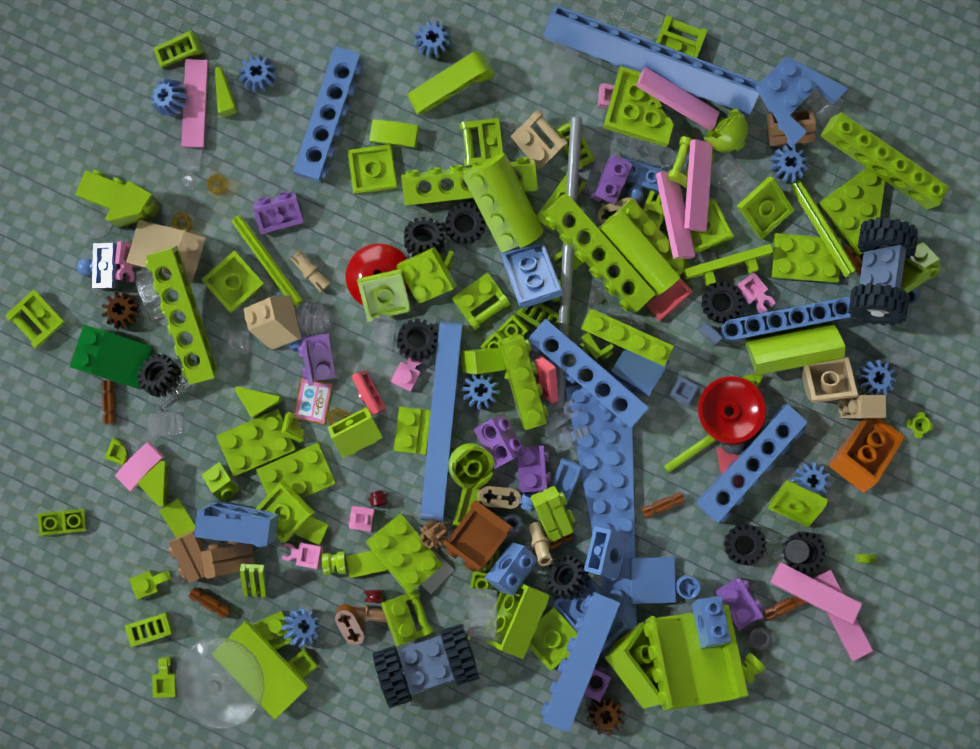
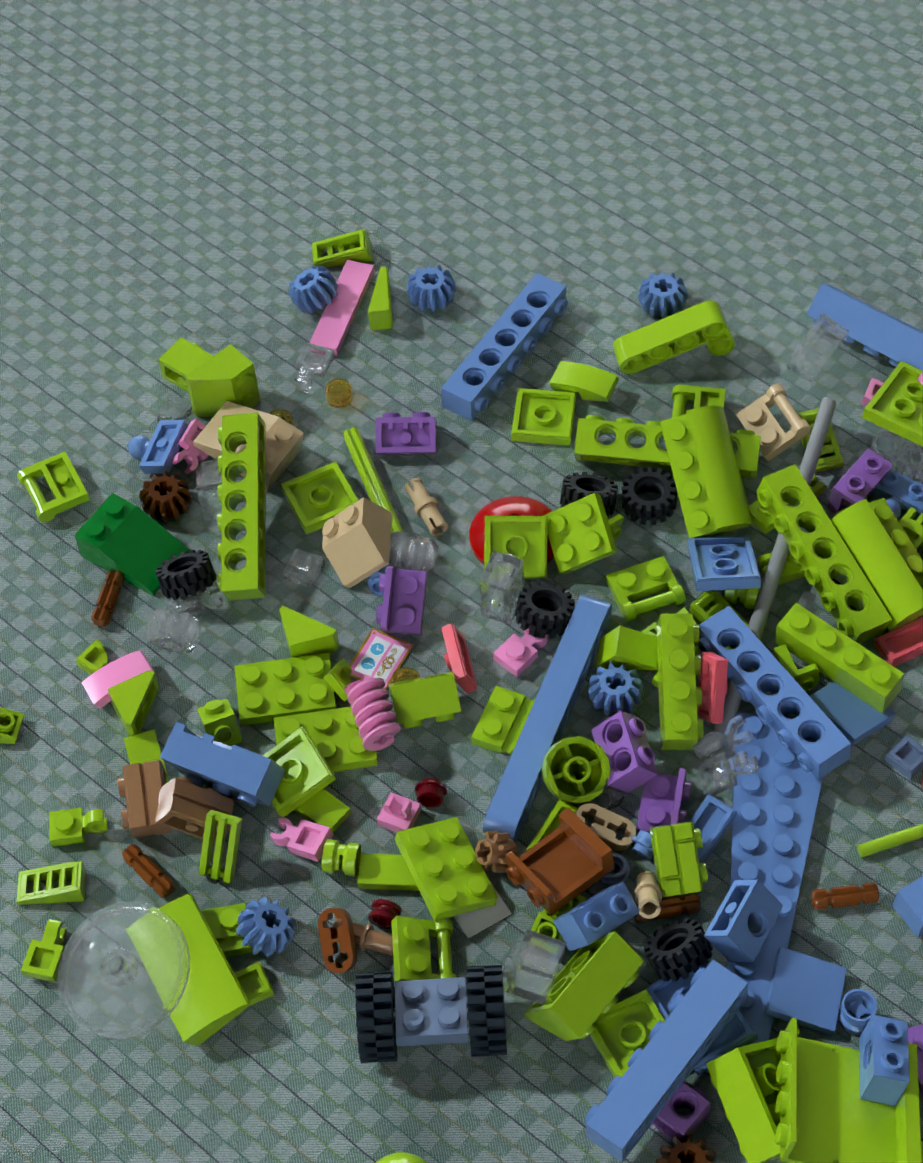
camera: 20 degrees right, 30 degrees down
(325, 457) = (372, 713): none -> bright pink piece

